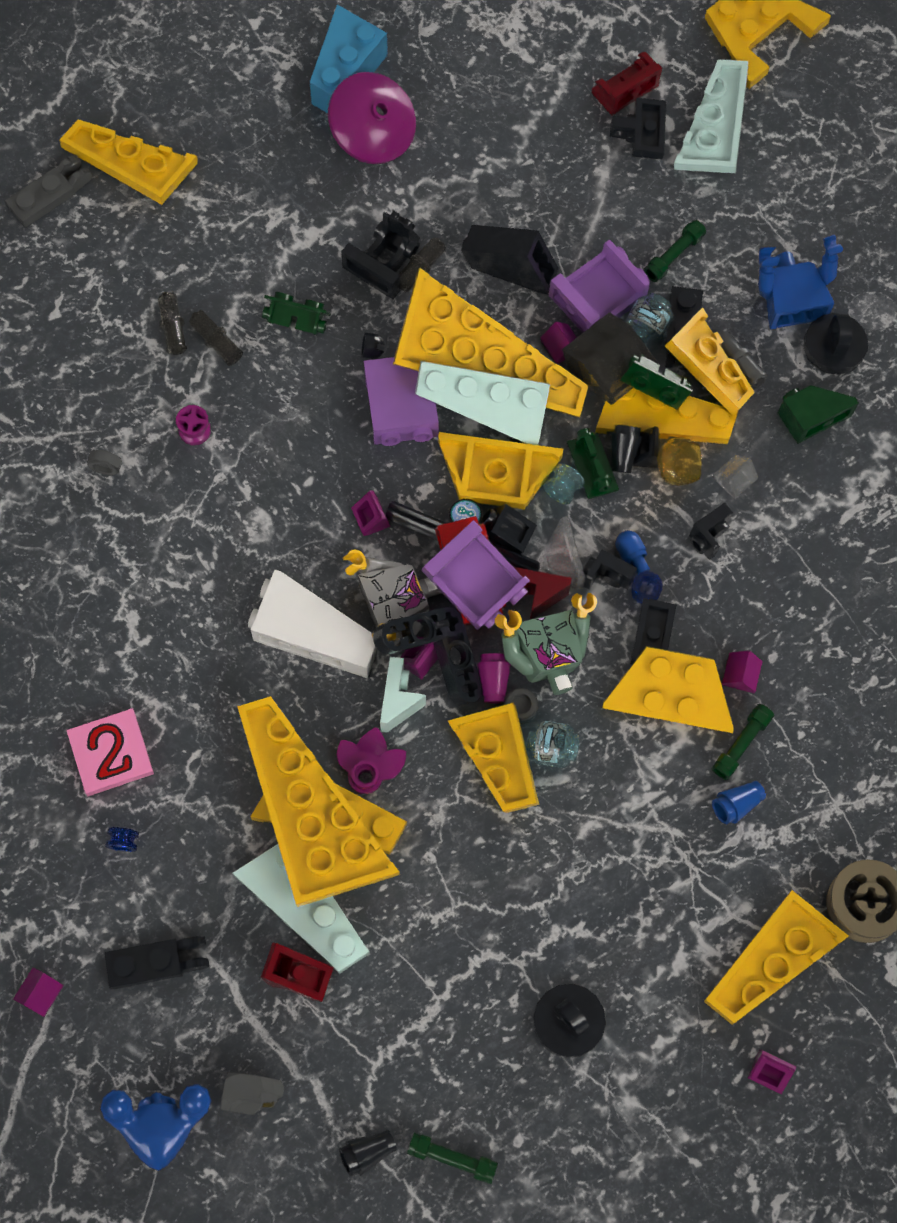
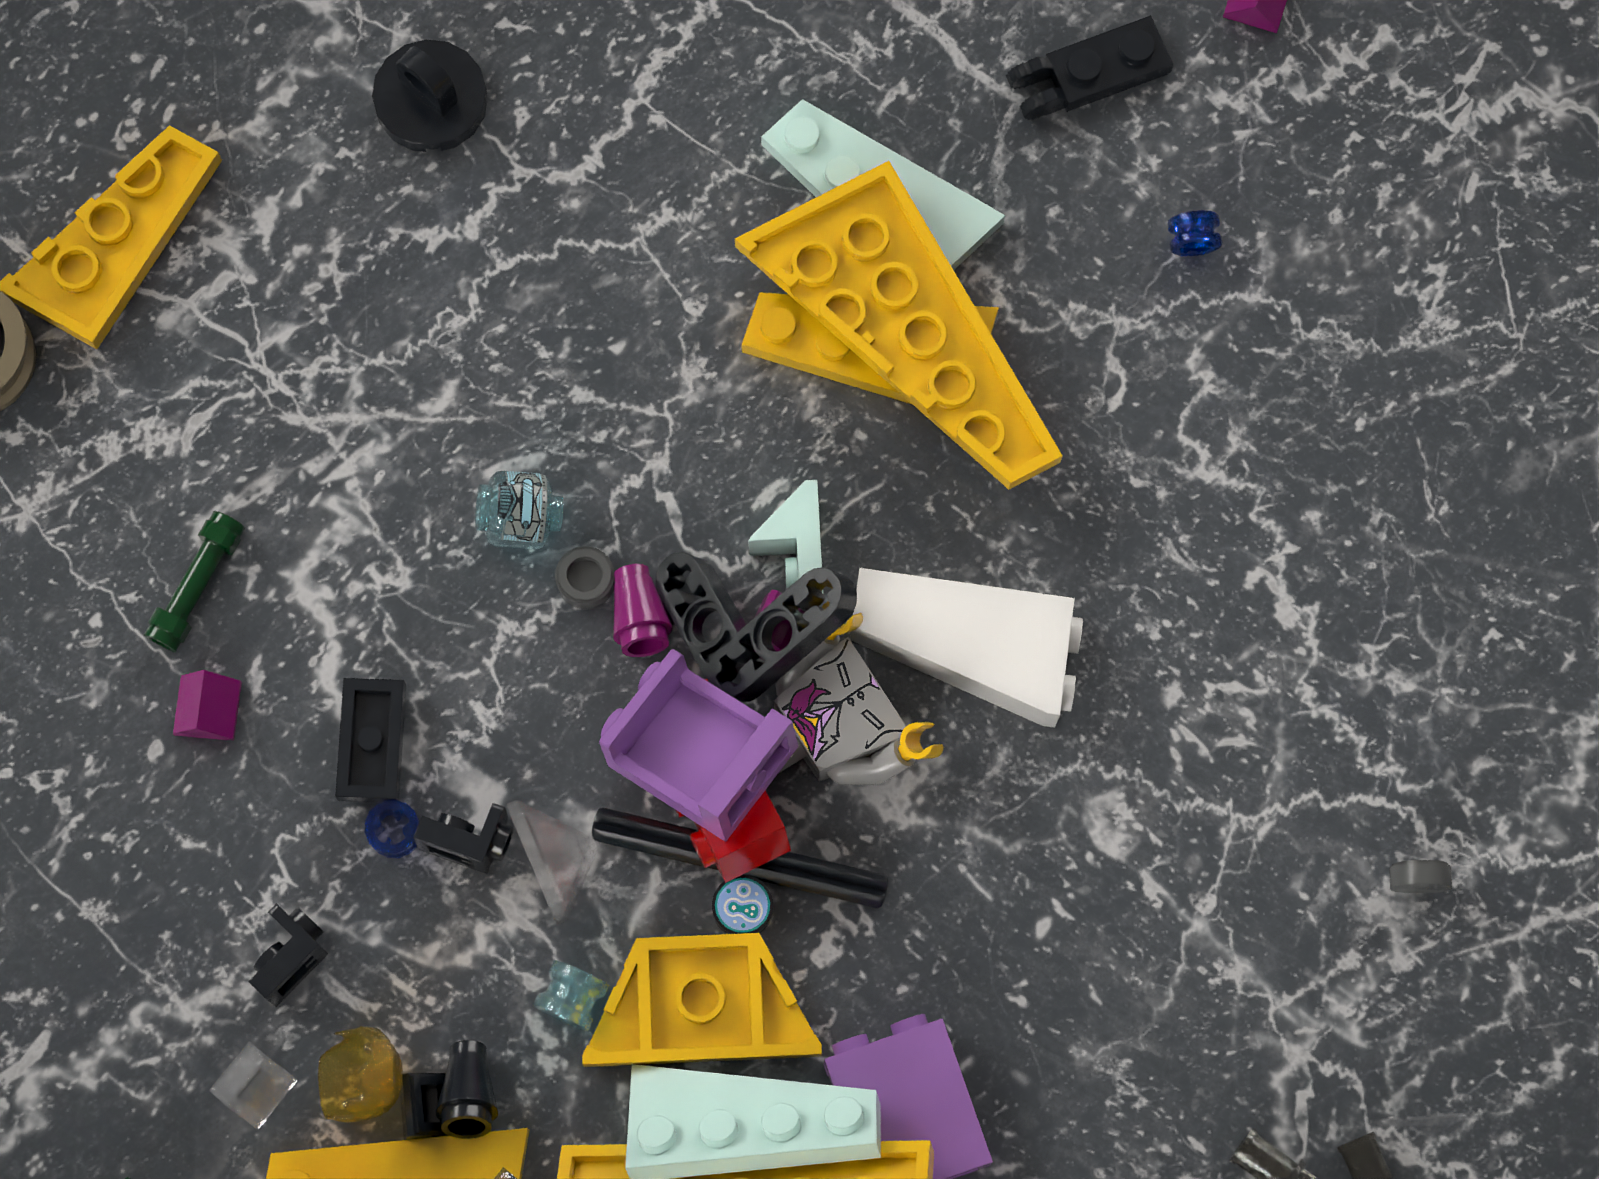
camera: 170 degrees right, 5 degrees up
(110, 752) = (1256, 374): bright pink tile -> none
(190, 417) = (1292, 983): magenta wheel -> none
(296, 972) = (866, 76): dark red slope -> none
(370, 514) = (914, 876): magenta slope -> none
(370, 757) = (819, 443): magenta plate -> none
(499, 752) = (606, 483): yellow wing -> none
(508, 527) = (662, 889): black bracket -> none
(546, 588) = (573, 786): dark red slope -> none
(549, 644) = (550, 674): sand green torso -> none
(592, 464) = (523, 1051): dark green hinge -> none
(632, 550) = (427, 891): blue cylinder -> none
(673, 689) = (325, 642): yellow wing -> none
(737, 802) = (193, 474): blue cone -> none
(771, 1071) = (104, 81): magenta slope -> none

